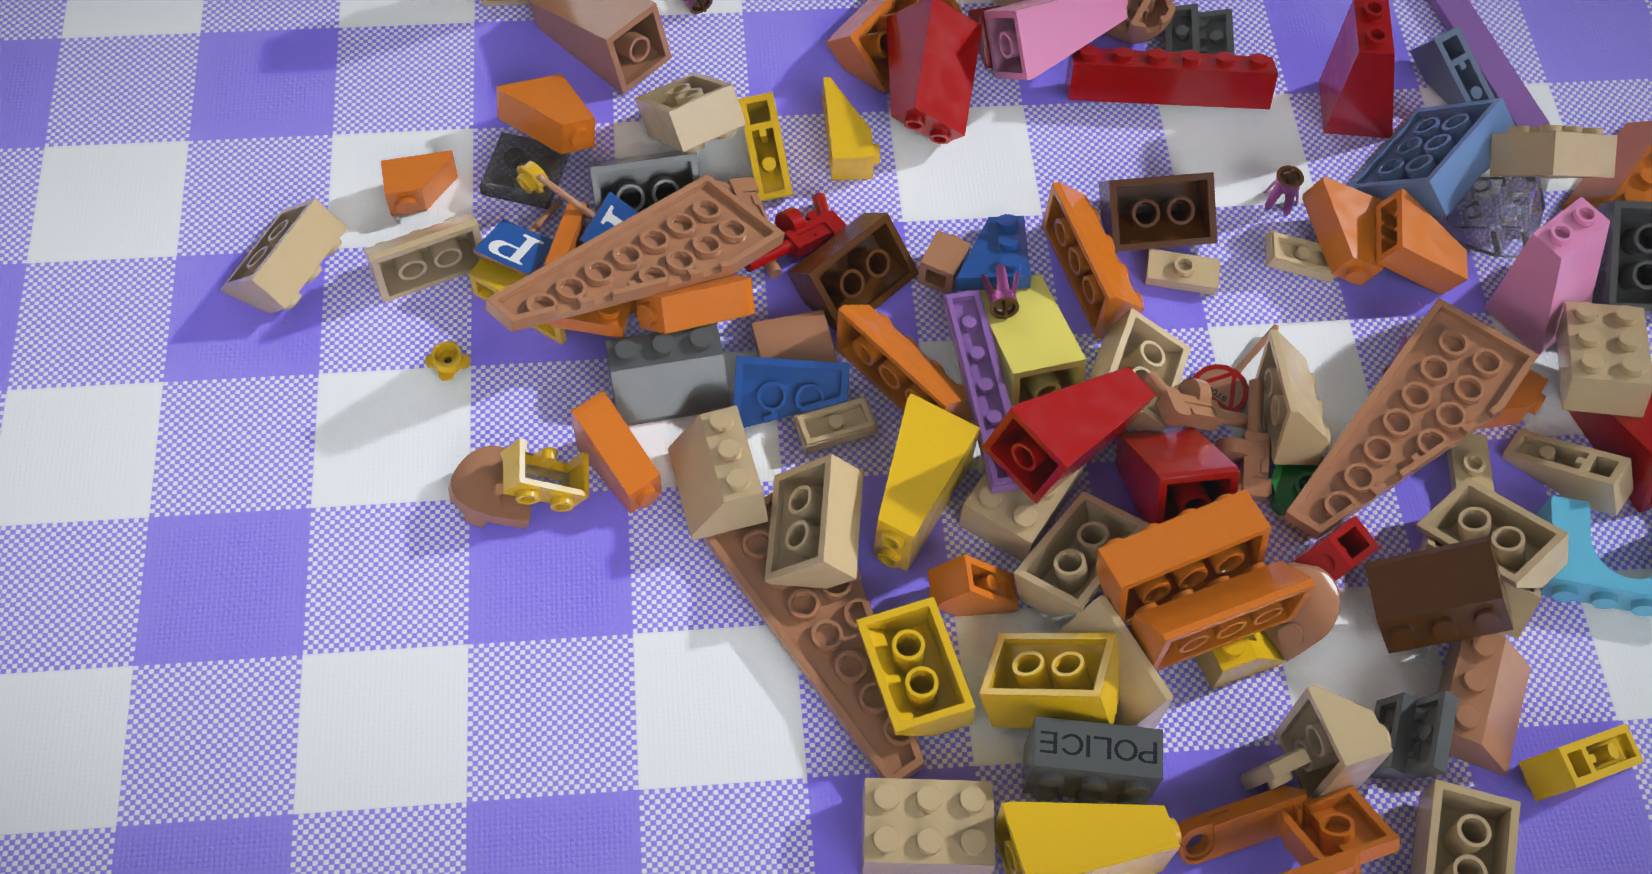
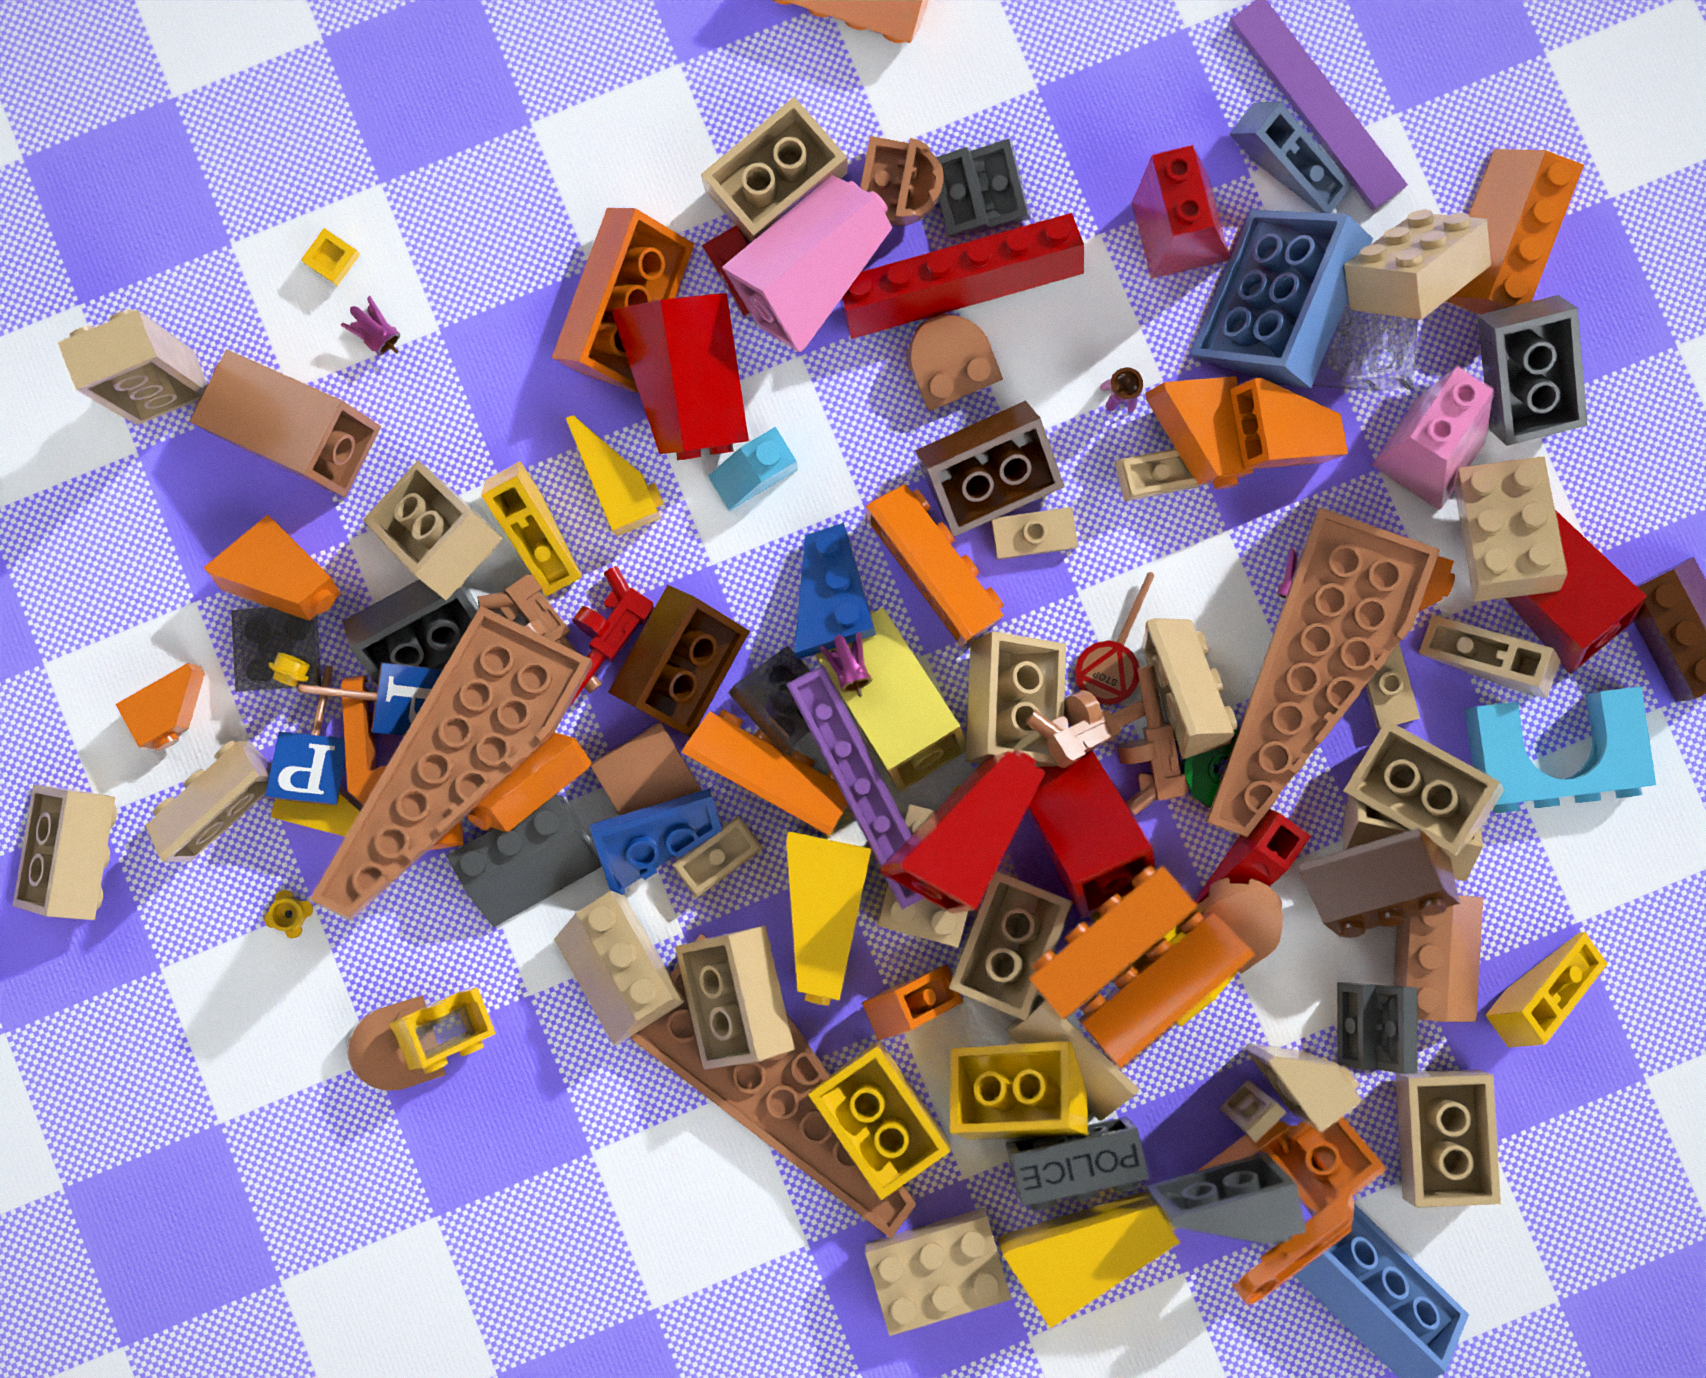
camera: 10 degrees left, 25 degrees up
(615, 453) = (506, 979): orange slope -> none
(924, 315) = (769, 701): none -> clear smoke plate
(943, 262) = (773, 614): nougat brick -> none
(963, 158) = (753, 469): none -> medium azure slope
(1146, 135) = (950, 360): none -> nougat slope
(1248, 828) = (1234, 1200): none -> dark grey slope

